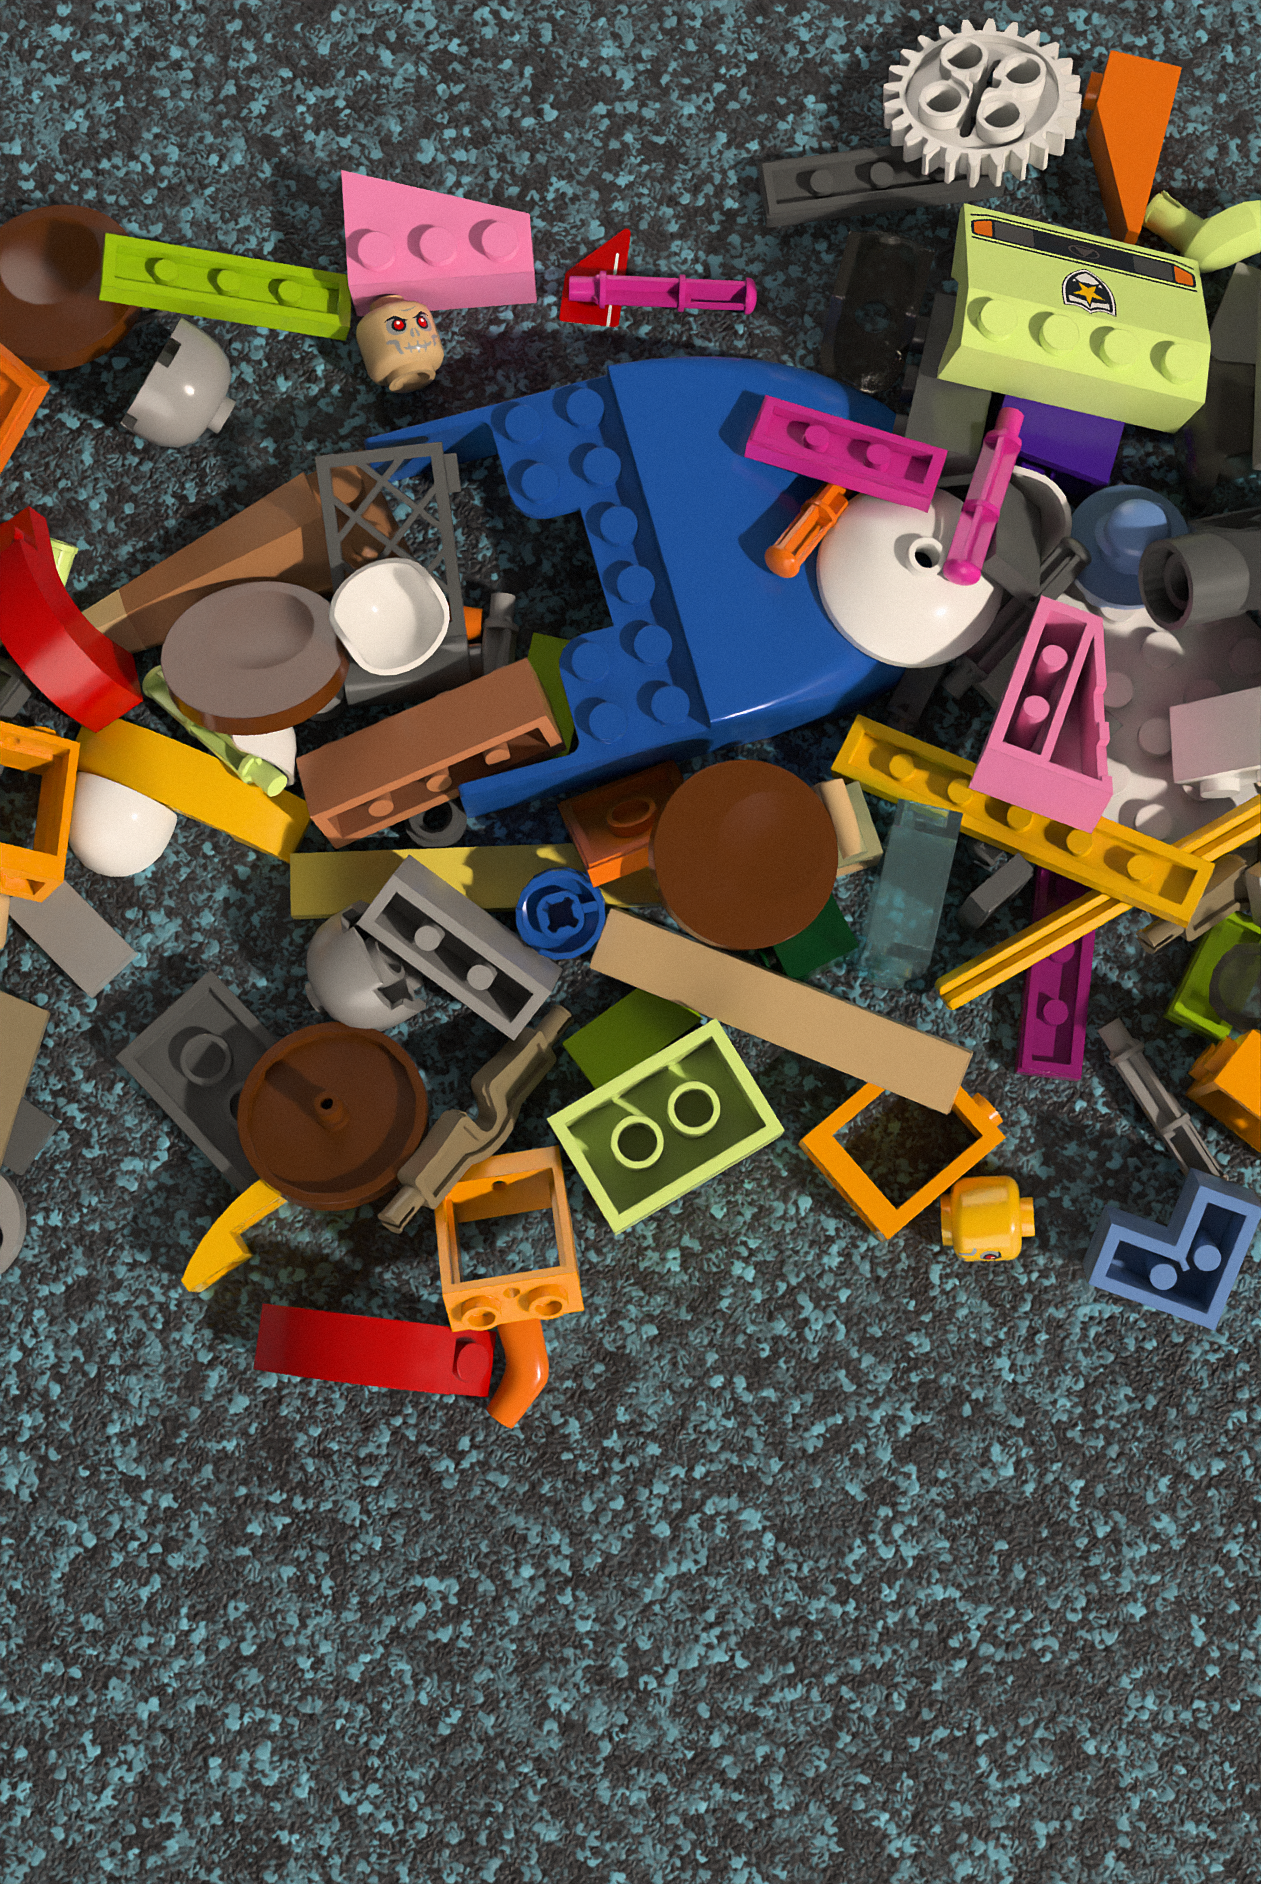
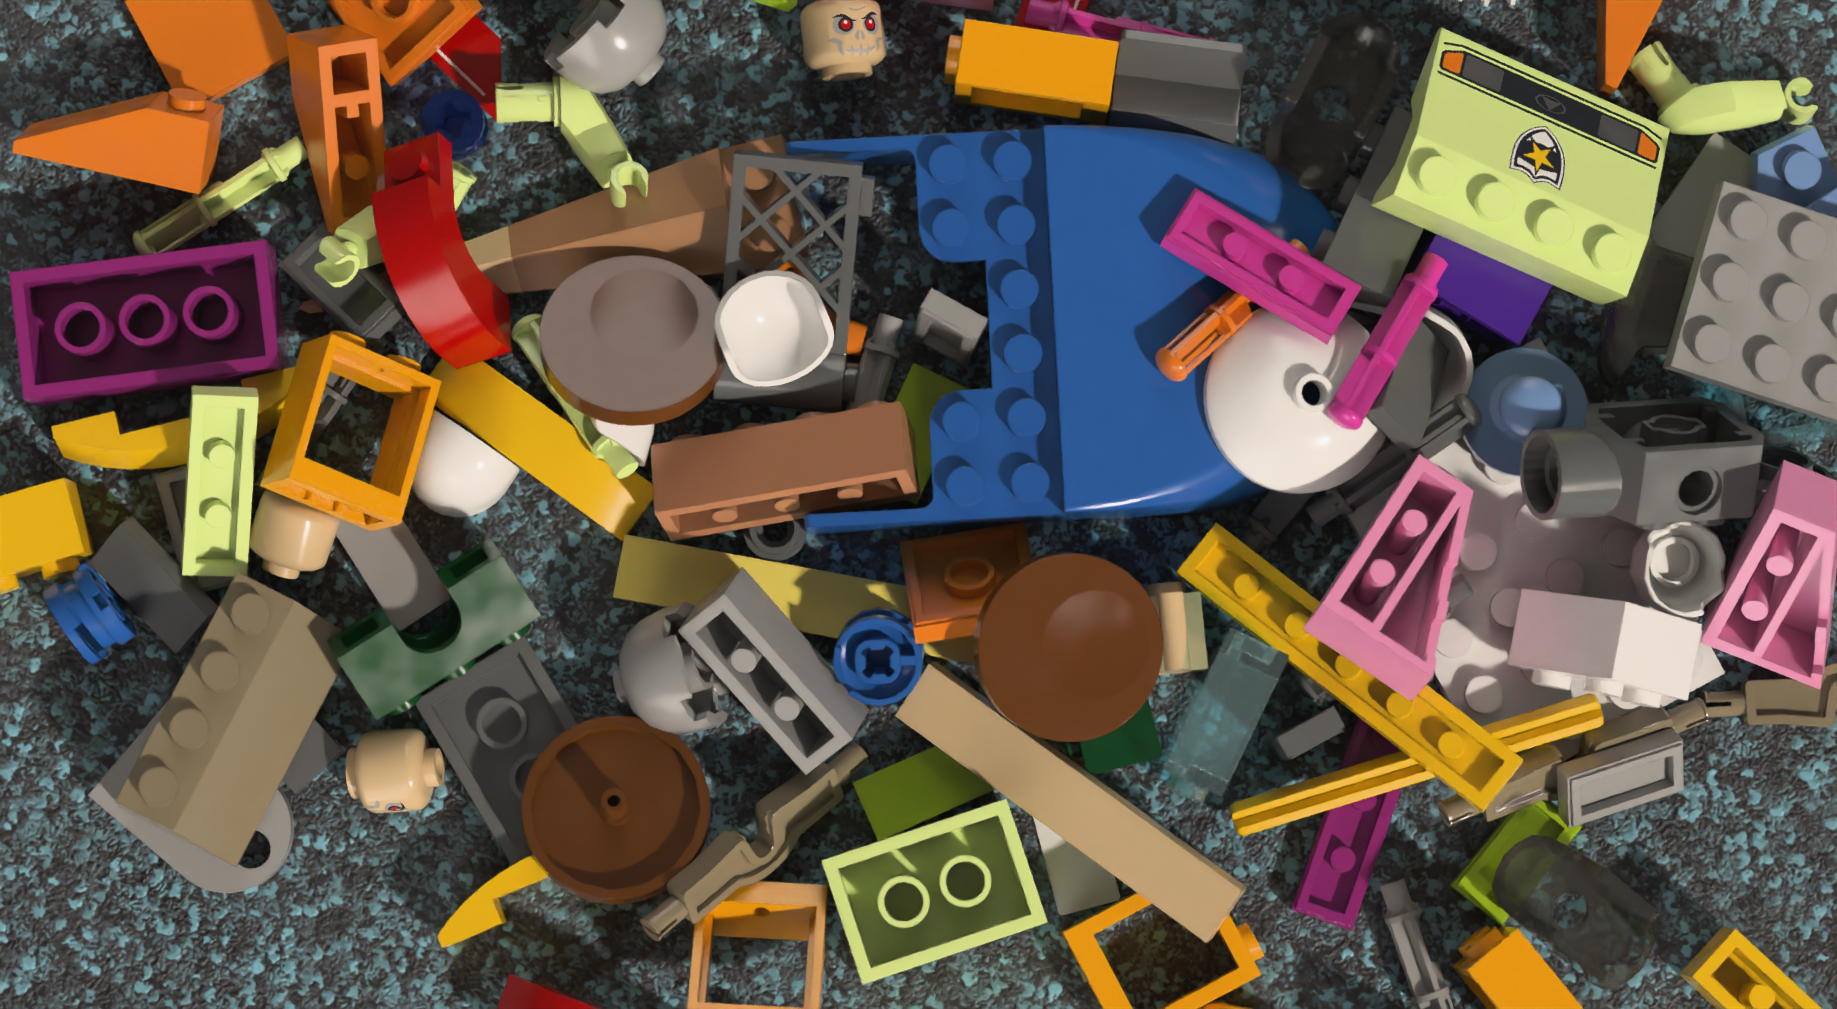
camera: 10 degrees right, 5 degrees up
(57, 449) = (473, 62): none -> red sticker
(64, 515) = (465, 134): none -> clear blue wheel
(86, 1026) = (396, 666): none -> dark green arch
(109, 1129) = (394, 770): none -> tan head
(171, 481) = (582, 124): none -> yellowish green arm
(559, 584) = (949, 328): none -> light grey tile
(579, 326) = (1032, 71): none -> light orange window
(728, 315) = (1178, 85): none -> dark grey panel
(798, 1083) = (1074, 877): none -> white sticker

